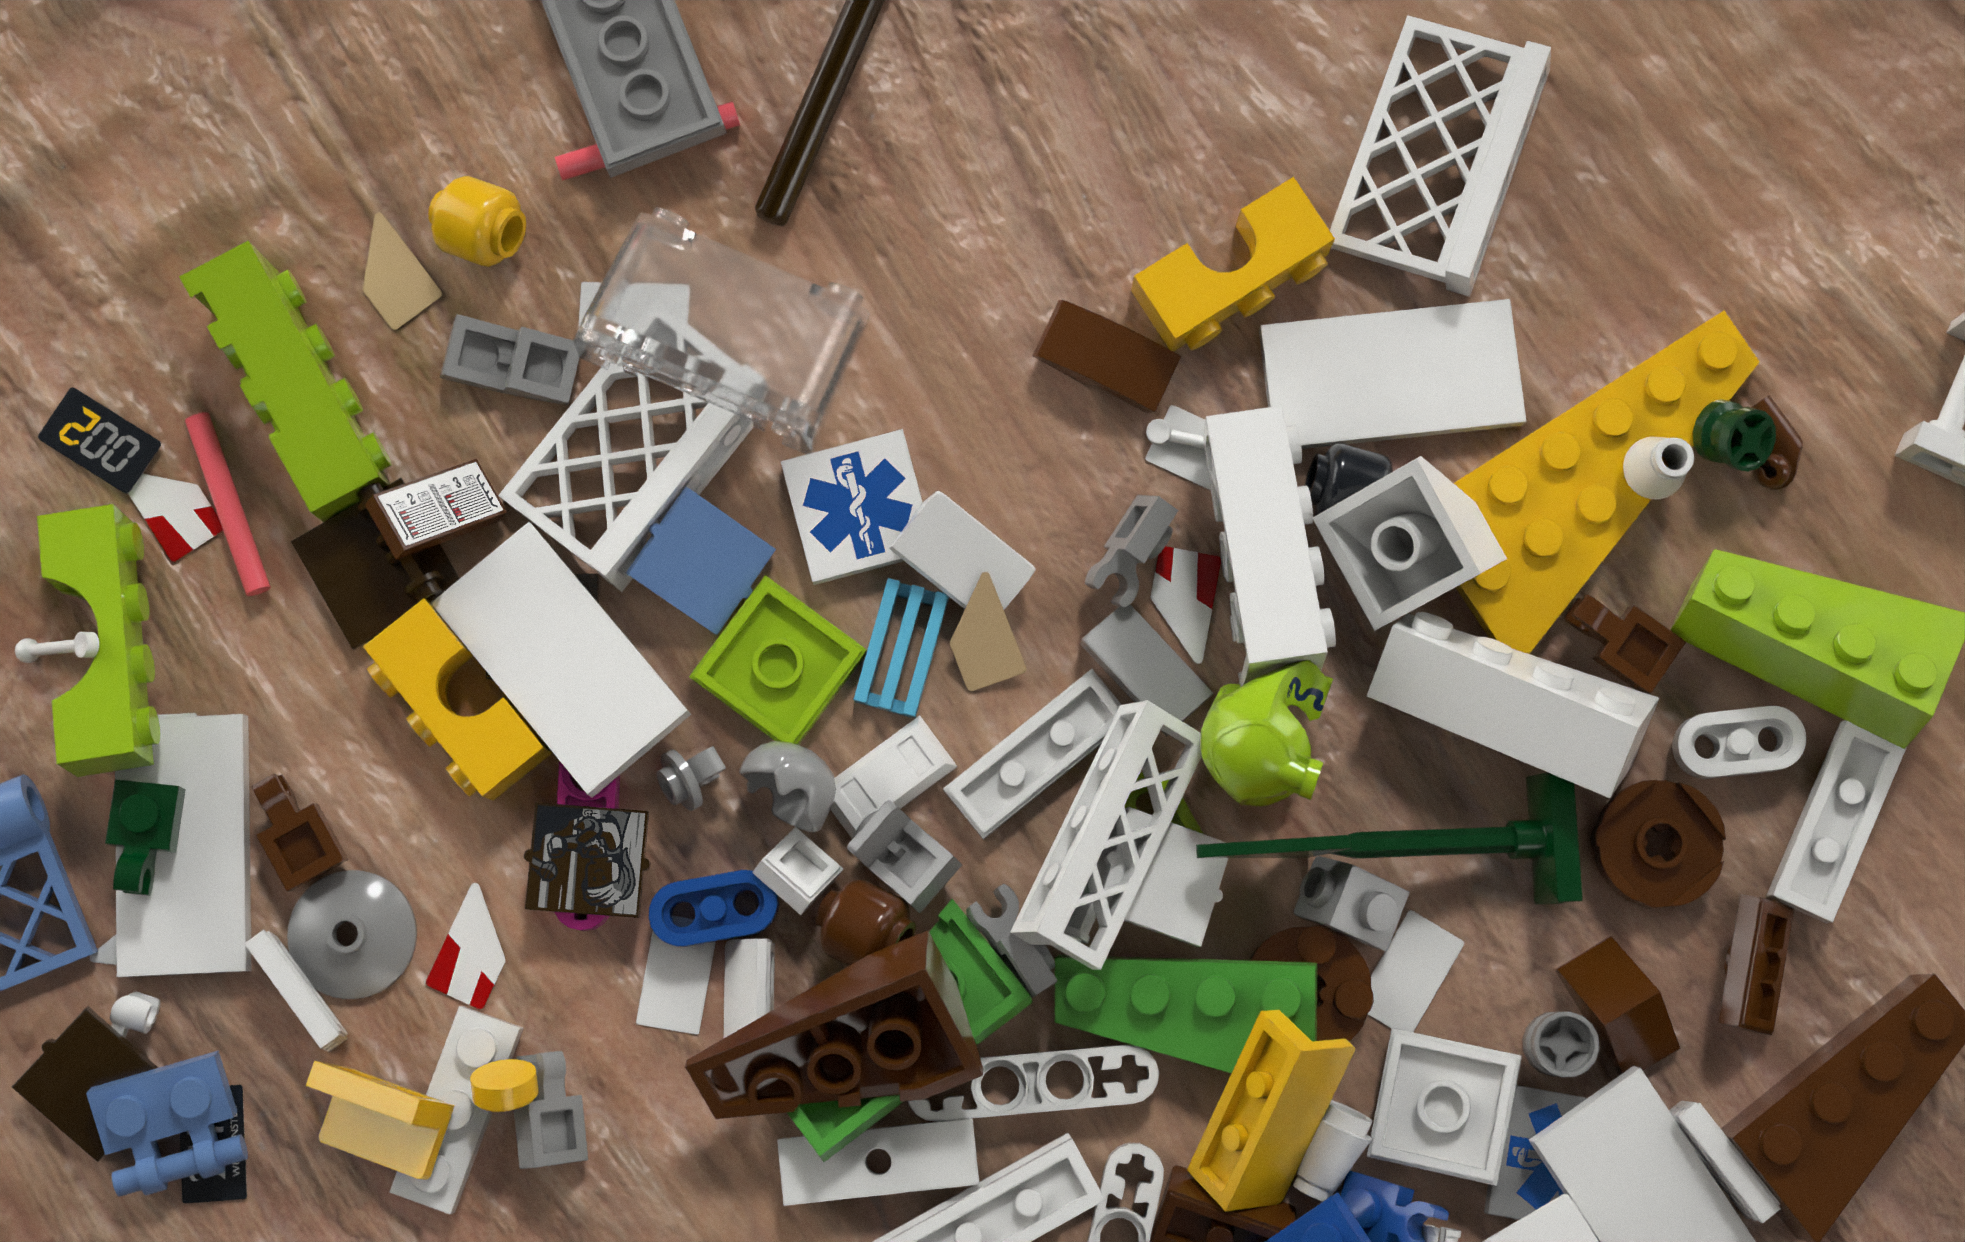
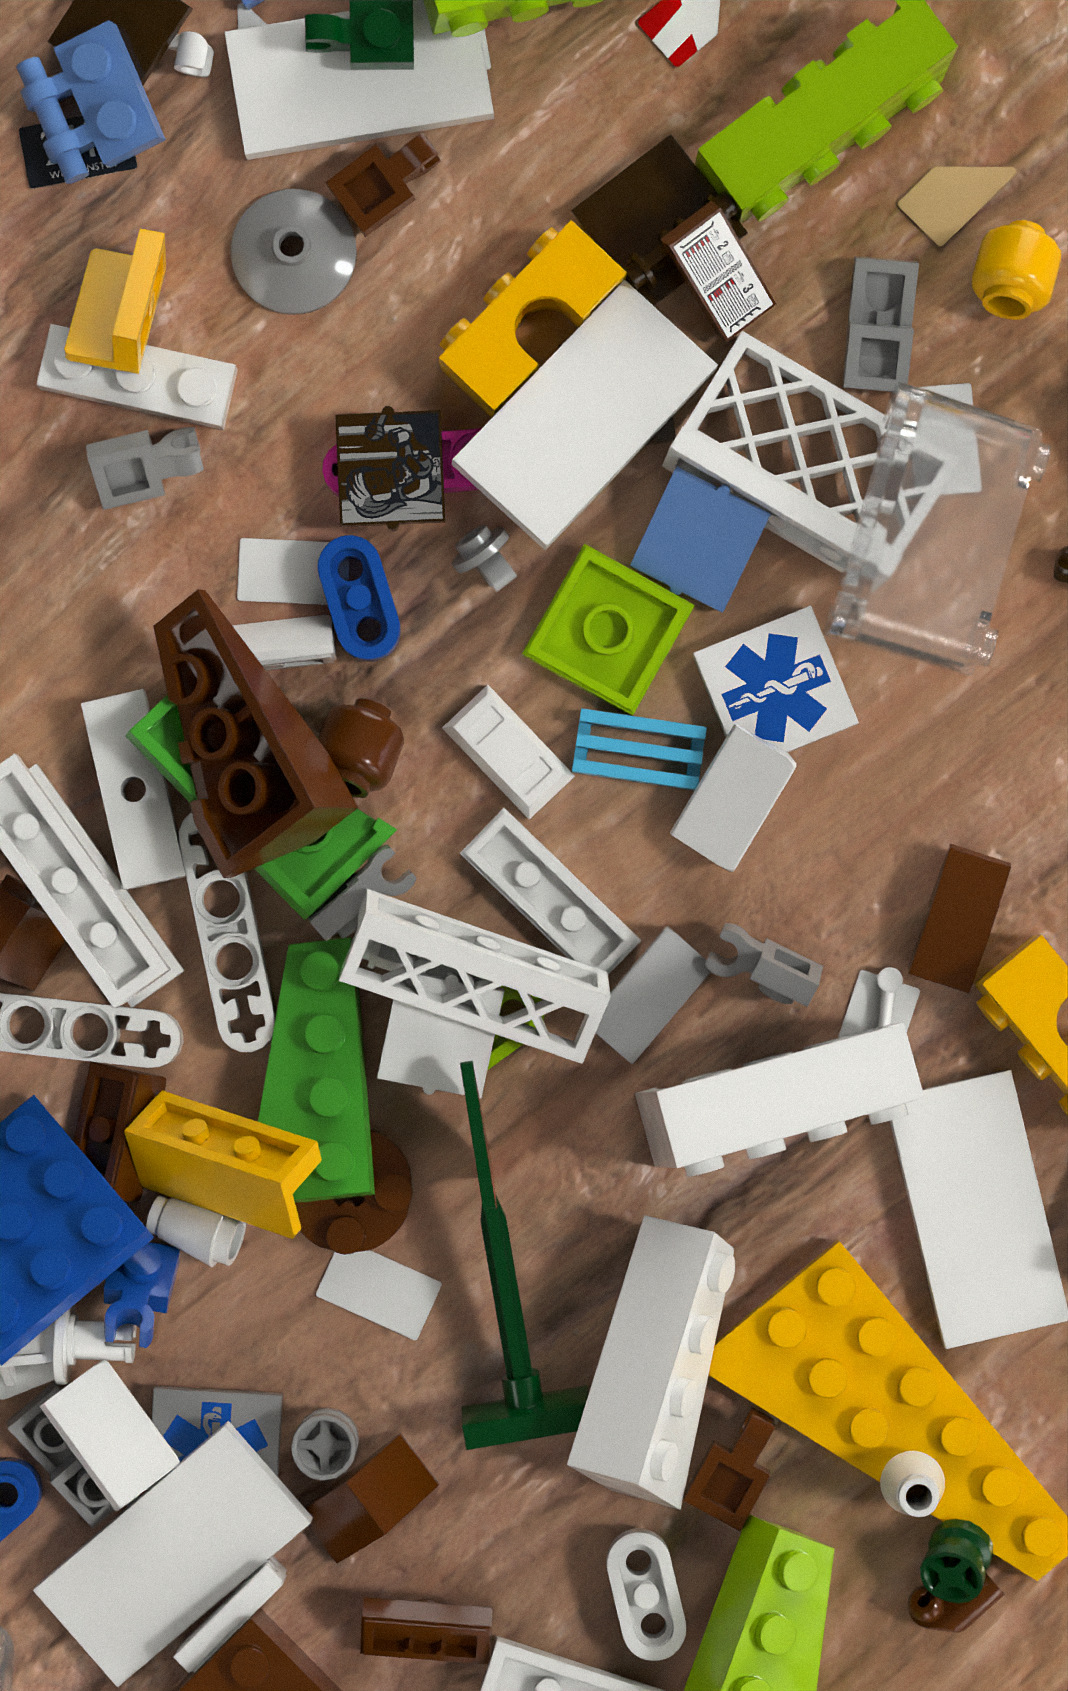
camera: 80 degrees right, 5 degrees up
(227, 504) = (701, 66): coral bar -> none
(297, 990) = (231, 206): white tile -> none
(470, 954) = (287, 368): white sticker -> none
(504, 1085) = (162, 418): yellow tile -> none
(797, 870) = (405, 675): white tile -> none
(798, 781) = (493, 665): light grey hair -> none
(903, 855) = (432, 776): light grey bracket -> none
(985, 641) = (655, 831): tan sticker -> none
(1185, 595) = (728, 1026): white sticker -> none
(1257, 743) = (580, 1106): lime piece -> none
(1343, 473) = (853, 1179): black head -> none
(1351, 902) = (440, 1223): light grey bracket -> none
(1407, 540) = (802, 1240): white slope -> none
(1444, 1106) = (252, 1335): white tile -> none
(1696, 849) = (535, 1561): reddish brown plate -> none

